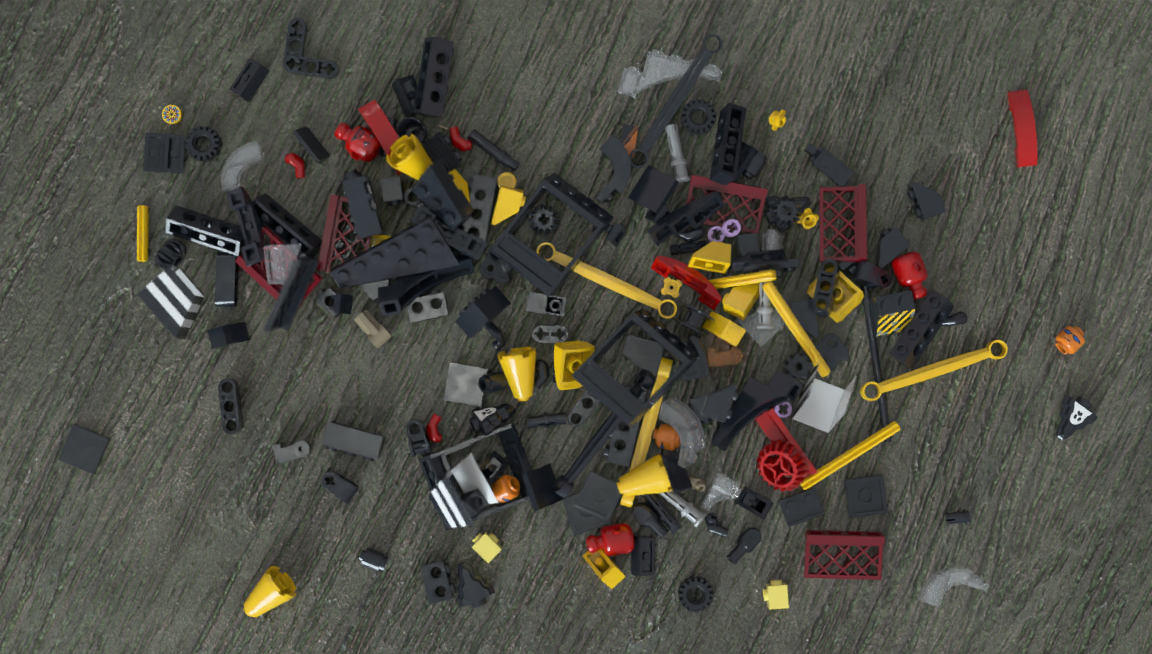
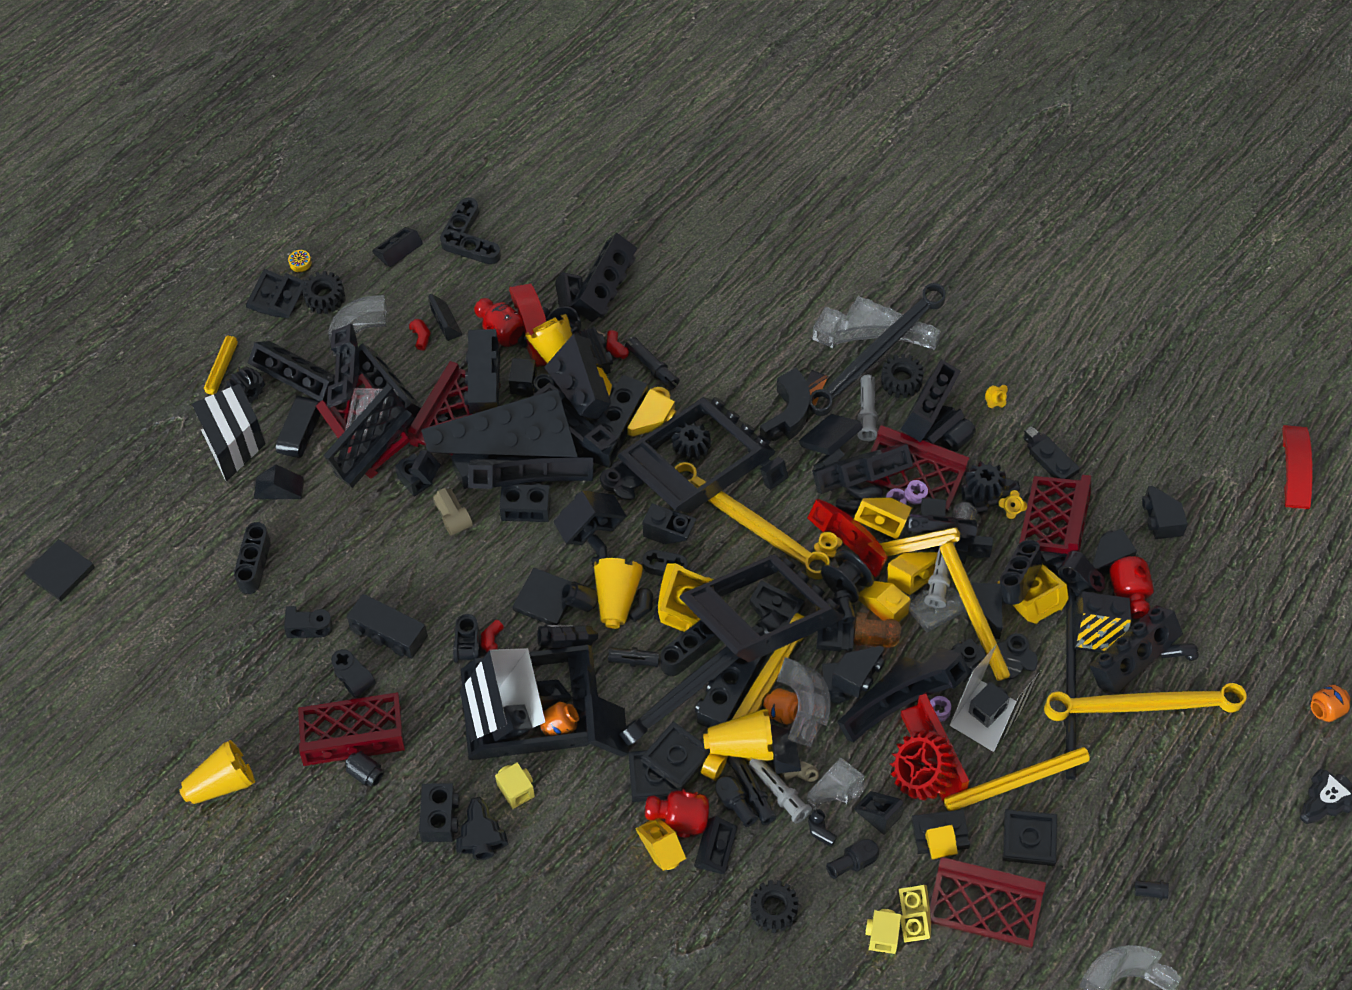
camera: 10 degrees right, 30 degrees down
(358, 543) = (340, 748): none -> dark red fence
(796, 576) = (916, 913): none -> light yellow slope
(804, 519) = (941, 842): none -> yellow slope
(820, 399) = (989, 704): none -> black brick

